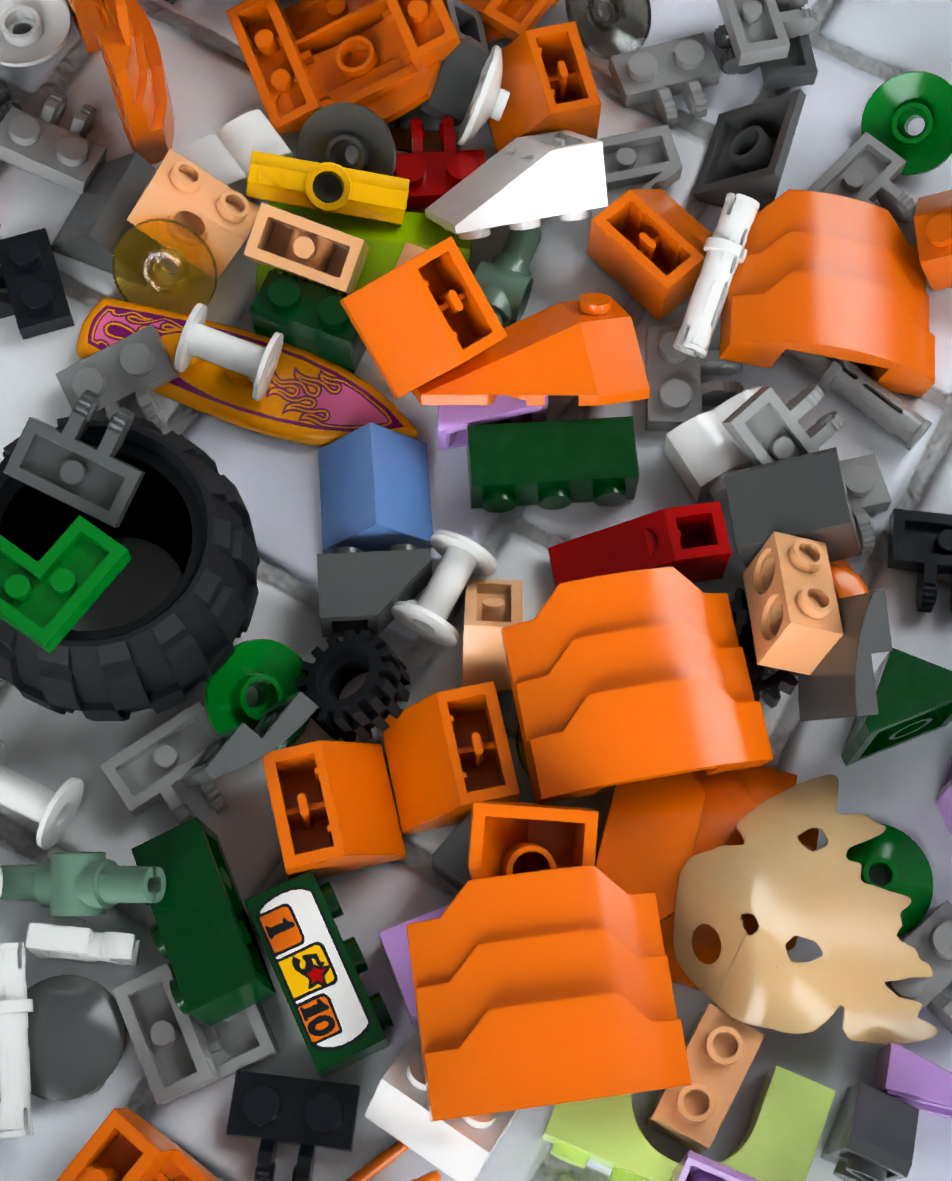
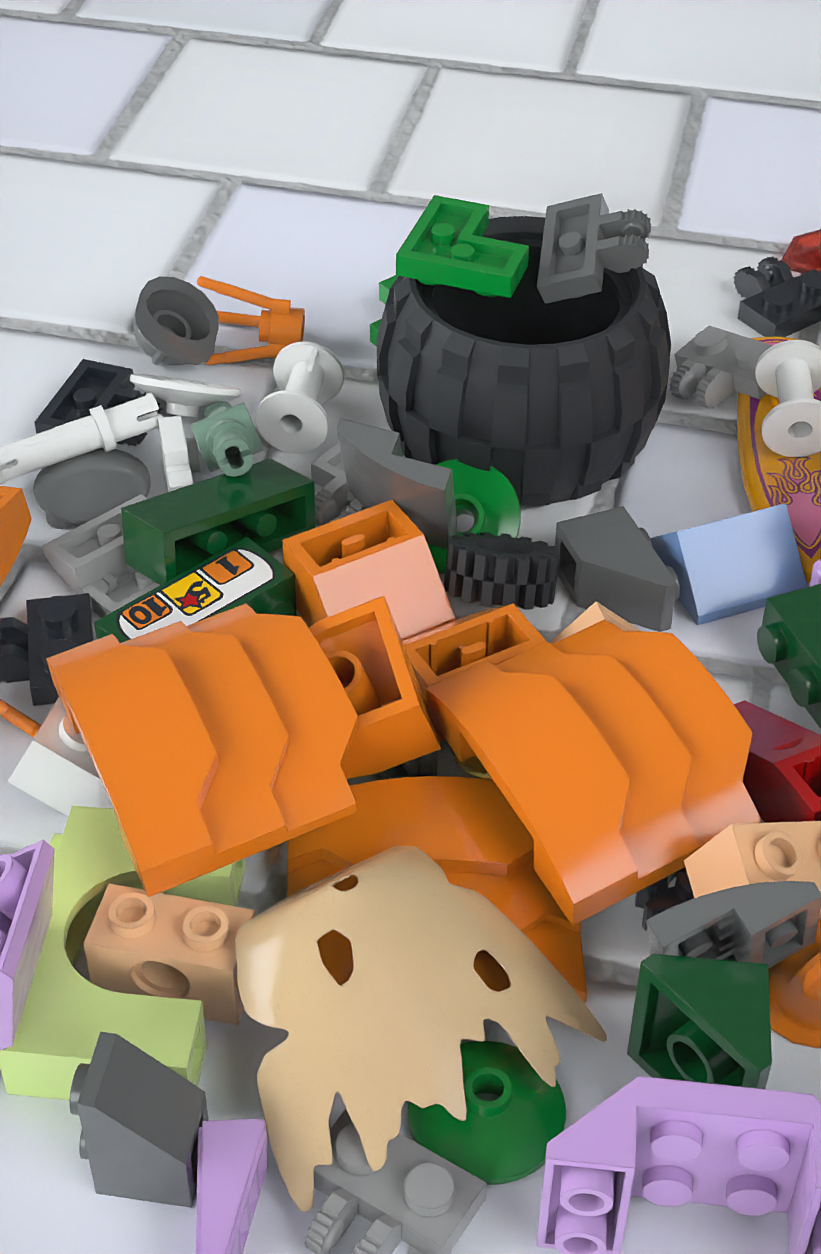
camera: 75 degrees right, 25 degrees down
(429, 613) = (654, 614): white piece -> none

